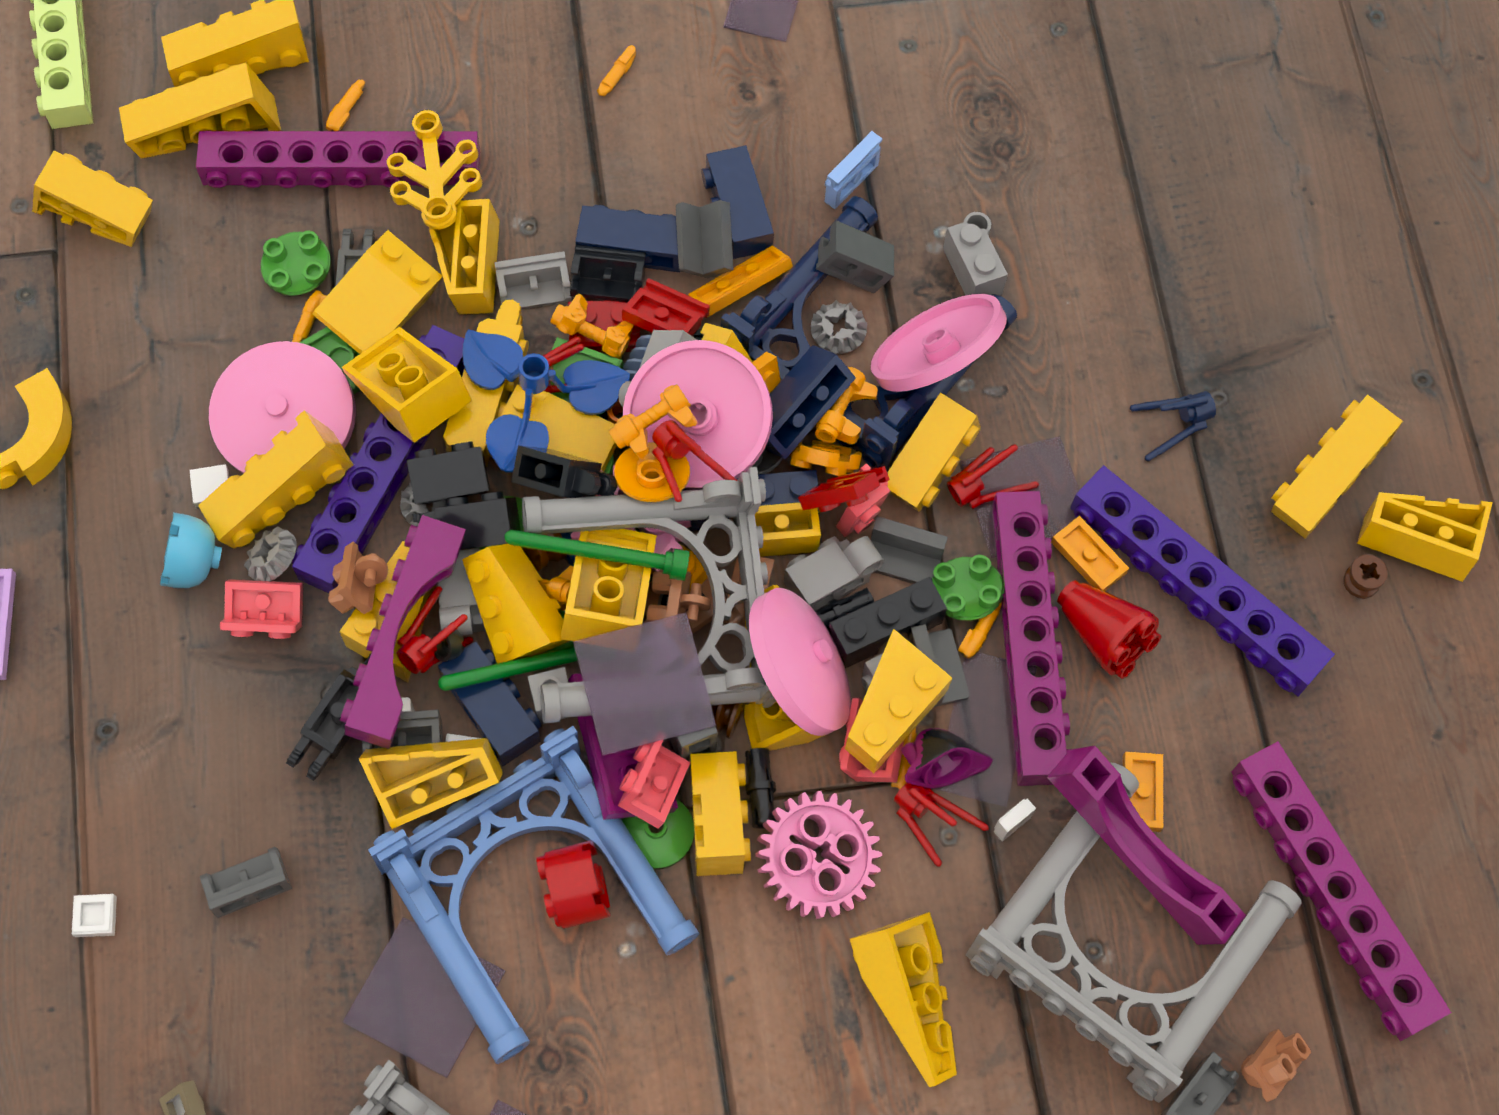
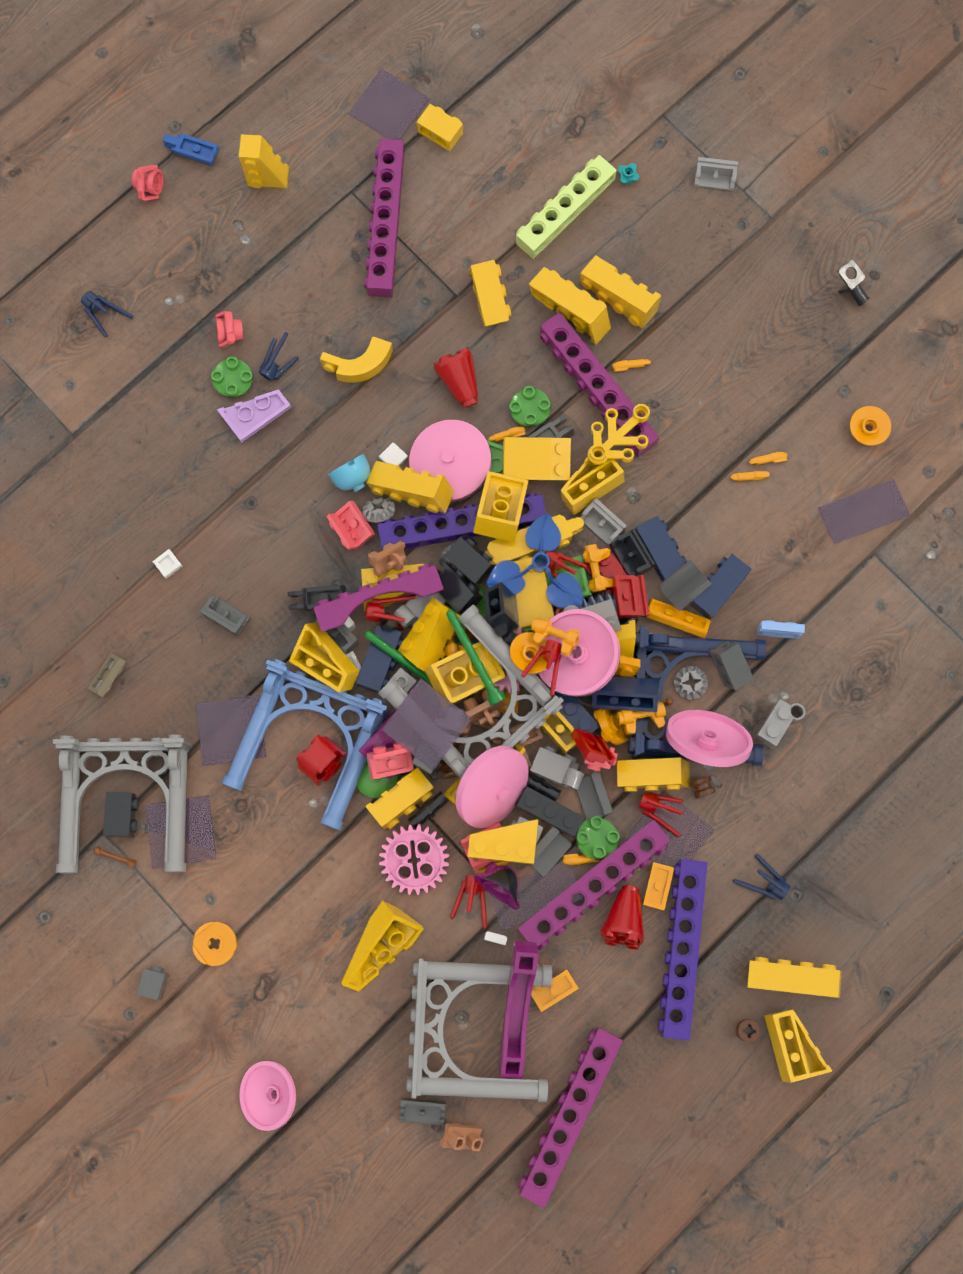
camera: 60 degrees right, 10 degrees up
(173, 316) = (459, 376): none -> red cone
(615, 29) = (773, 457): none -> light orange piece
(994, 406) = (702, 787): none -> reddish brown wheel

